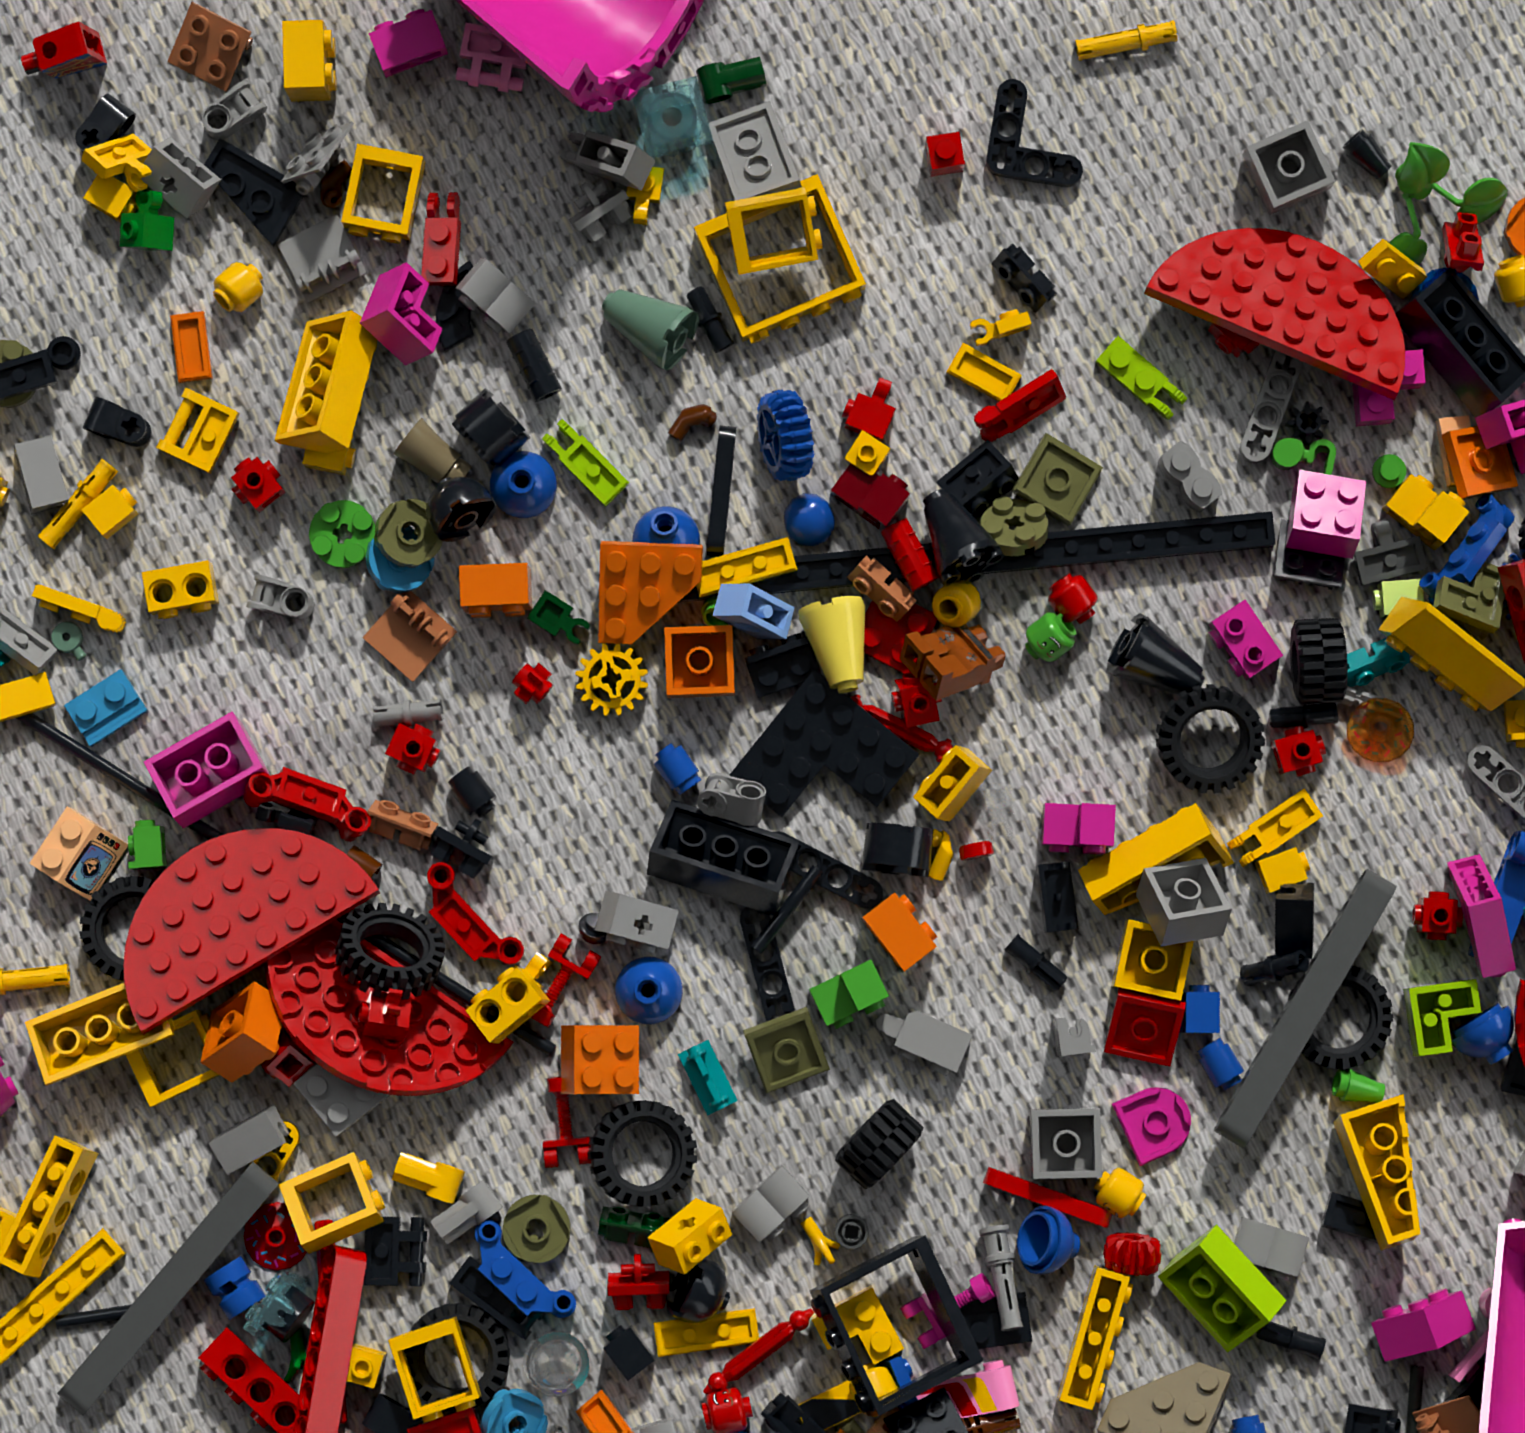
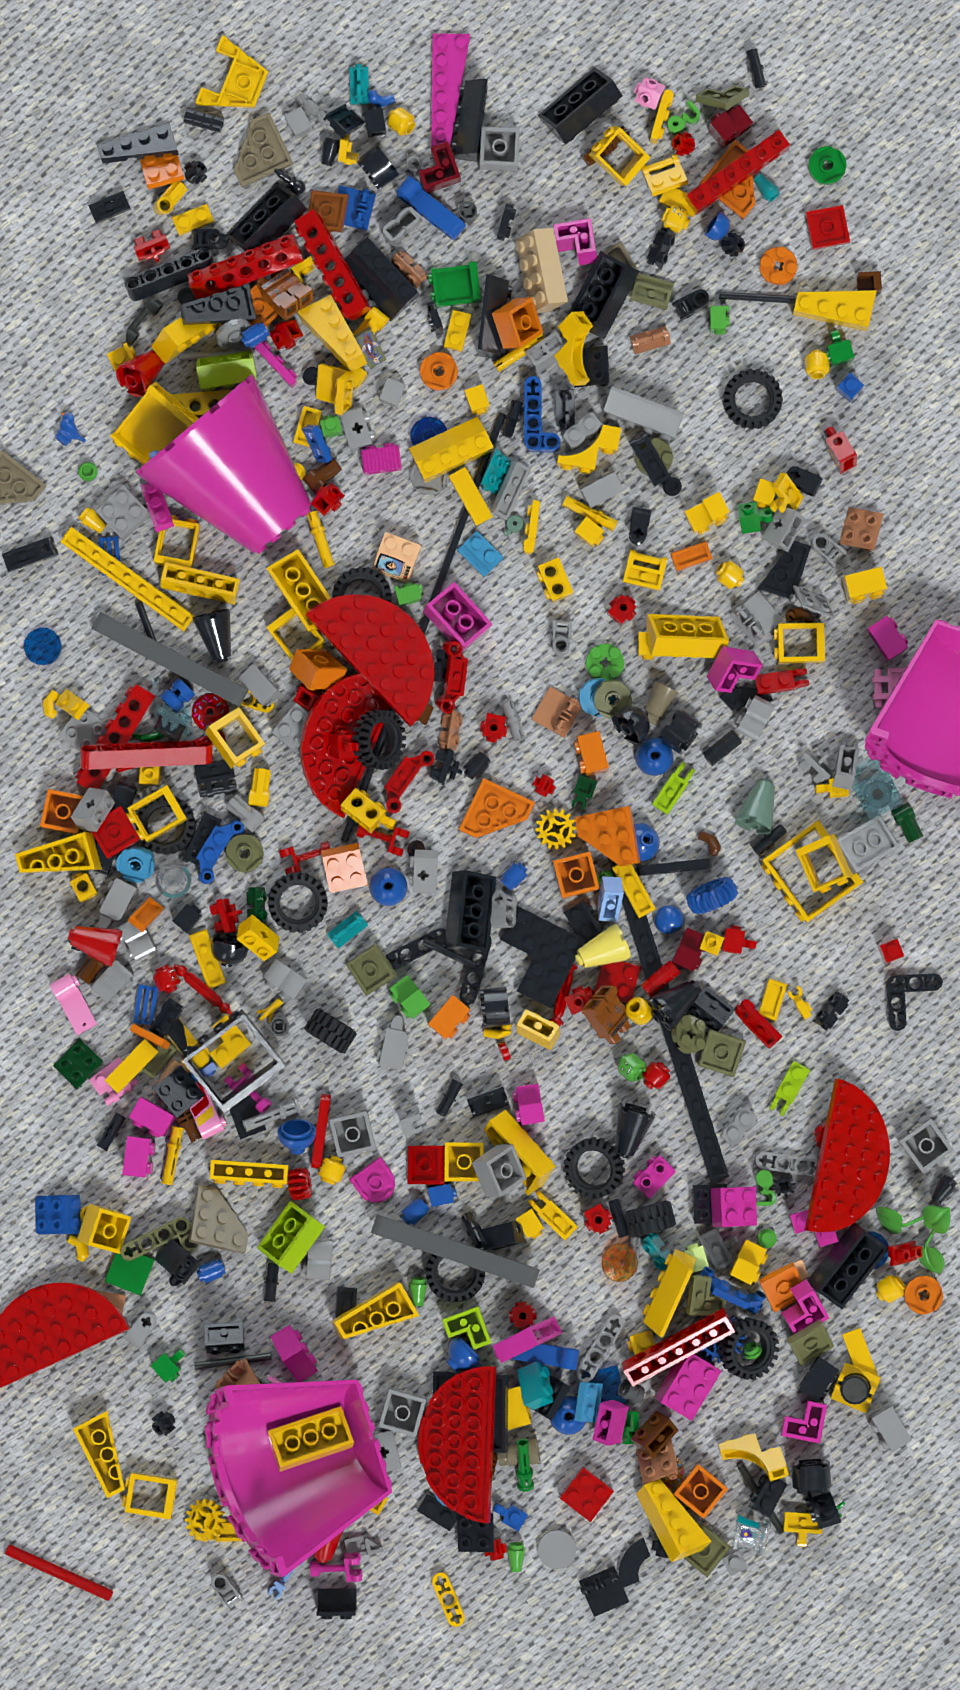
camera: 80 degrees right, 0 degrees up
(121, 294) = (710, 512): none -> yellow brick
(141, 1198) = (215, 633): none -> black cone
(555, 777) = (494, 810): none -> orange plate
(869, 579) = (633, 974): nougat hinge -> none
(1392, 268) = (880, 1215): yellow plate -> none

